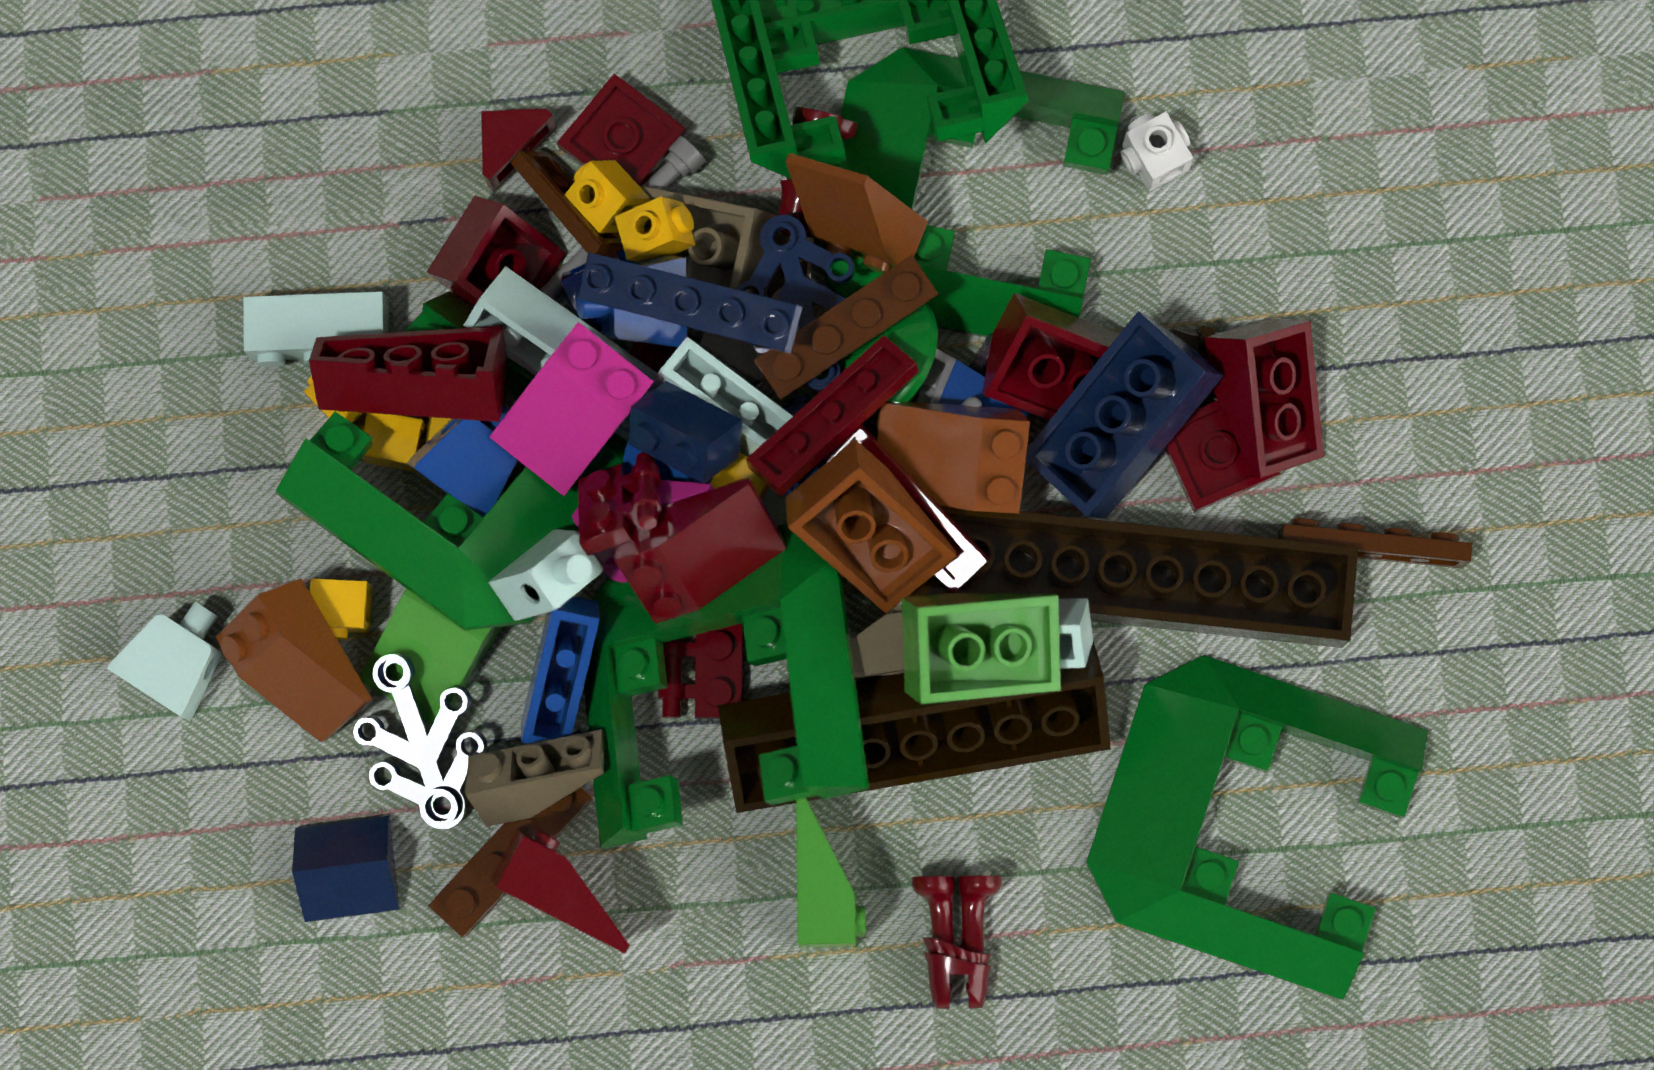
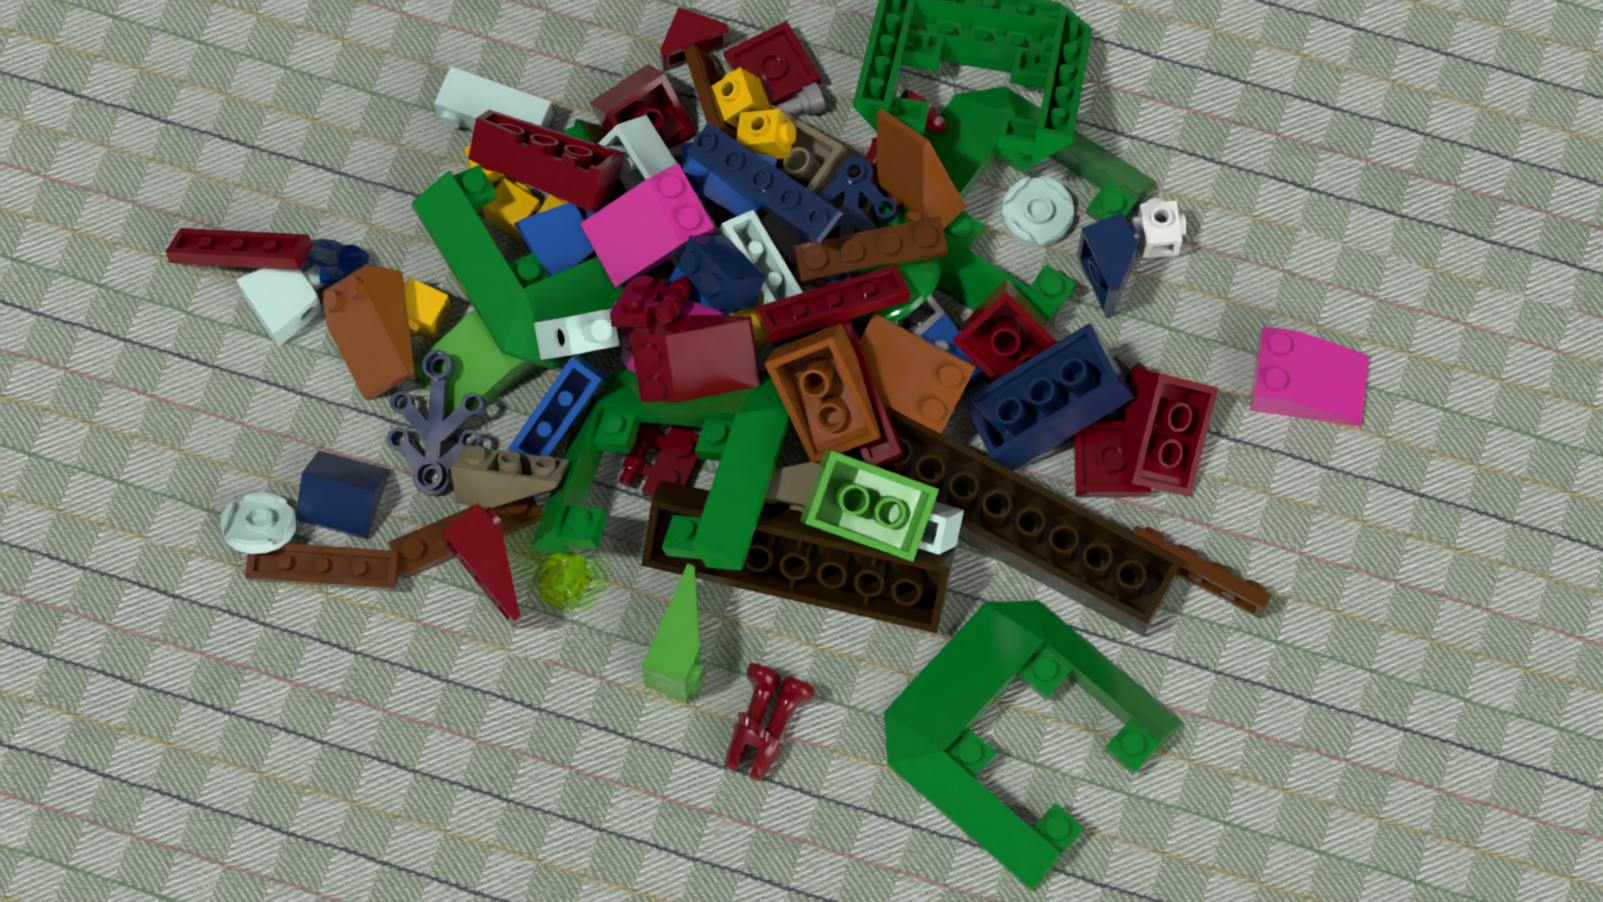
camera: 20 degrees right, 10 degrees down
(93, 628) = (239, 248): none -> dark red plate
(212, 590) = (336, 259): none -> clear blue plate
(266, 950) = (258, 523): none -> light aqua tile
(364, 968) = (326, 566): none -> reddish brown plate
(654, 867) = (564, 580): none -> clear neon green head
(1011, 197) = (1031, 219): none -> light aqua tile
(1118, 215) = (1107, 258): none -> dark blue slope
(1399, 260) = (1308, 378): none -> dark pink slope

